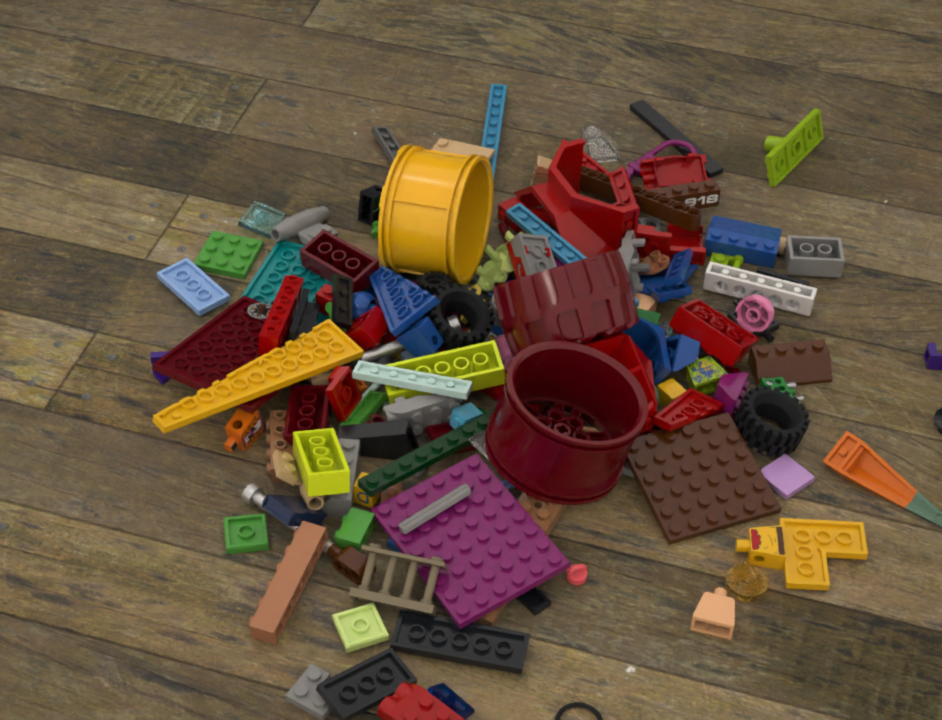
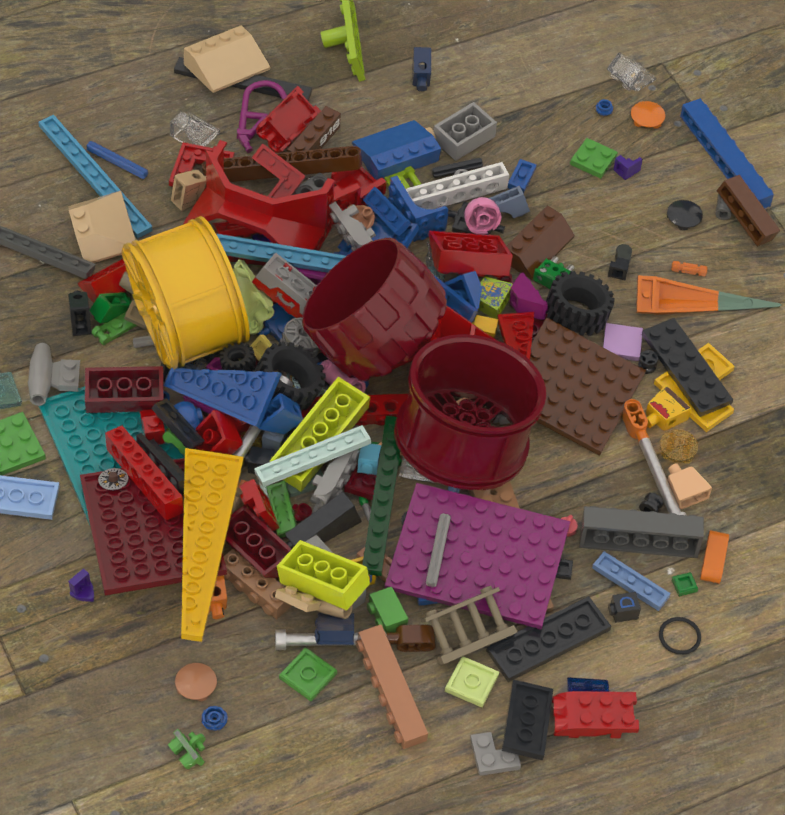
camera: 45 degrees left, 10 degrees up
(99, 517) = (192, 756): none -> bright green hips
(141, 512) = (214, 712): none -> blue plate
(161, 481) = (196, 681): none -> nougat dish
(520, 135) = (117, 159): none -> blue axle
(551, 664) = (624, 607): none -> black brick
(582, 650) = (631, 580): none -> medium blue plate
(629, 616) = (641, 532): none -> dark grey brick
(629, 687) = (684, 584): none -> green tile
(667, 606) = (652, 503): none -> black wheel
(674, 114) = (225, 59): none -> tan slope
(679, 683) = (714, 557): none -> orange beam
(702, 288) = (426, 219): none -> blue bracket
(724, 544) = (633, 414): none -> piece
(790, 502) = (648, 356): none -> black wheel
(798, 323) = (512, 202): none -> sand blue arch
(819, 527) = (687, 367): none -> black plate
(826, 197) = (421, 73): none -> dark blue torso
(831, 313) = (522, 175): none -> blue plate
(849, 420) = (622, 260): none -> black leg
(911, 461) = (689, 268): none -> orange axle
(912, 337) = (593, 158): none -> bright green plate

